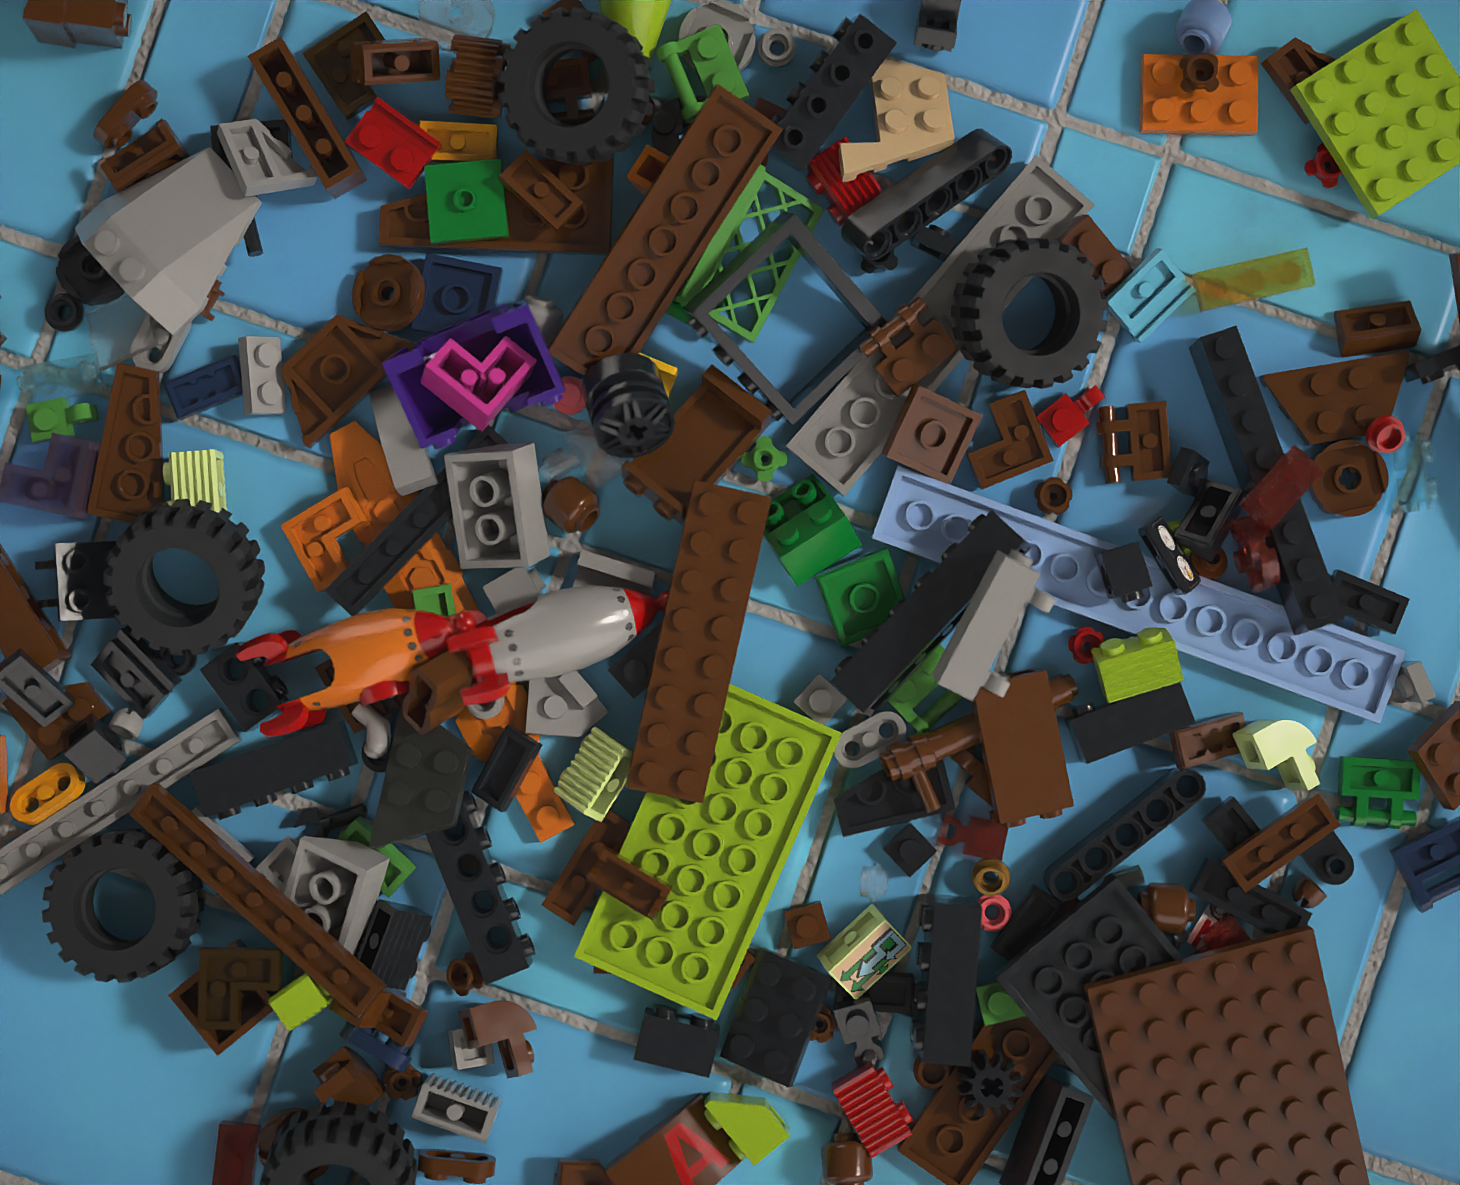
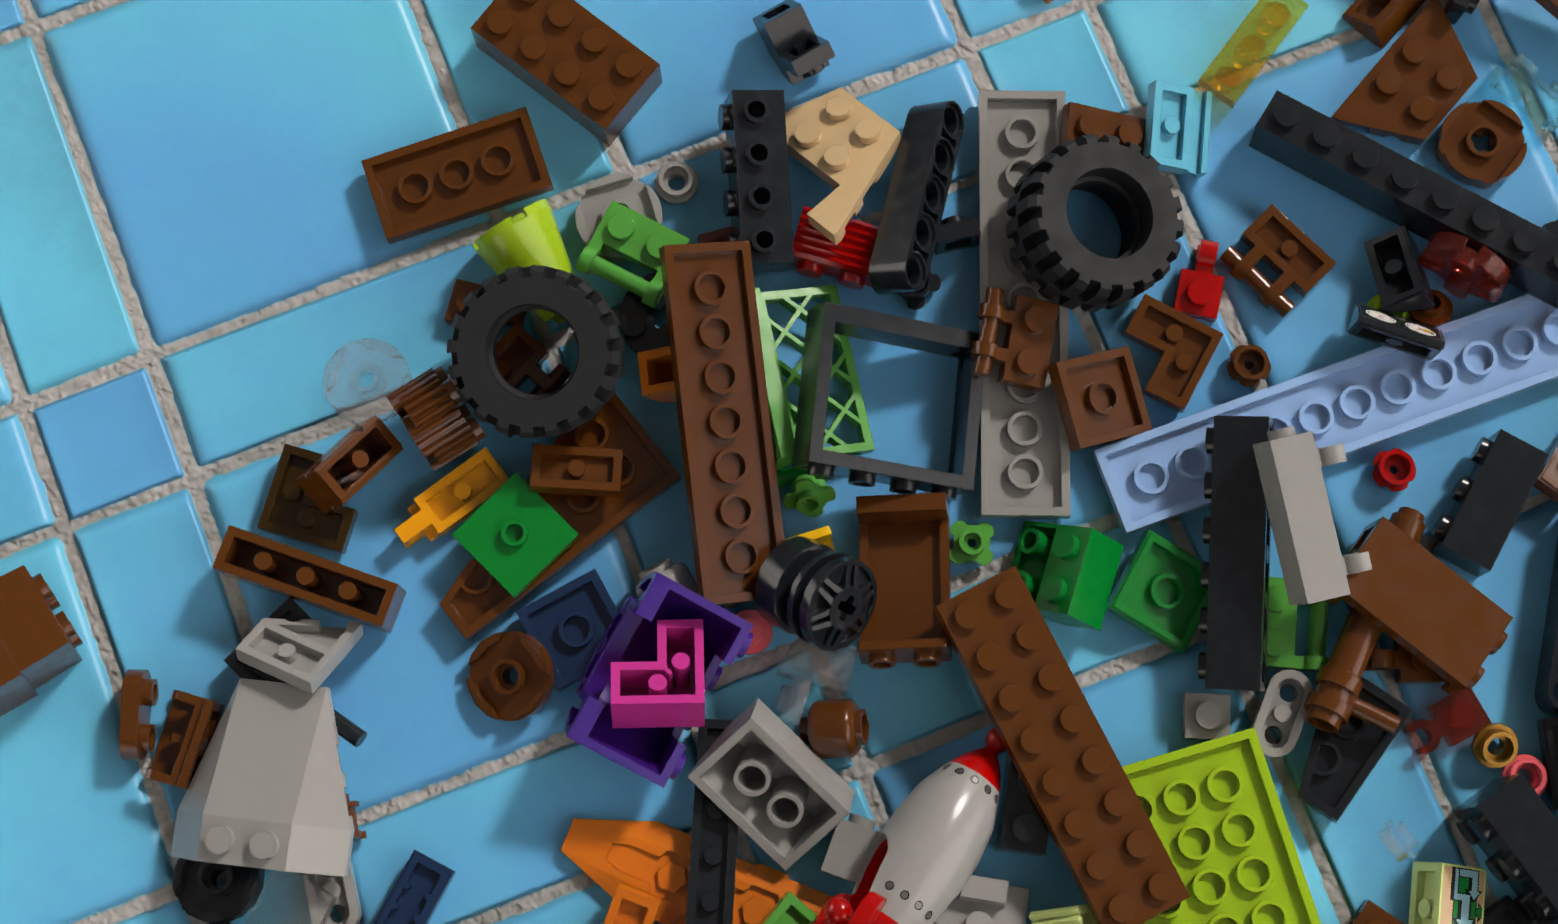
camera: 40 degrees left, 10 degrees down
(262, 375) = (455, 848): light grey plate -> none
(336, 373) = (522, 787): reddish brown wing -> none
(393, 143) = (407, 538): red plate -> none
(407, 462) = (634, 797): light grey slope -> none
(612, 573) = (914, 764): light grey panel -> none
(683, 338) = (809, 495): none -> bright green plate
(909, 849) = (1402, 783): black plate -> none
(1124, 572) = (1371, 376): black brick -> none
(1137, 664) = (1454, 446): lime brick -> none
(1188, 472) = (1346, 247): black plate -> none
(1281, 487) = (1442, 190): clear red plate -> none
(1385, 434) = (1480, 78): red plate -> none

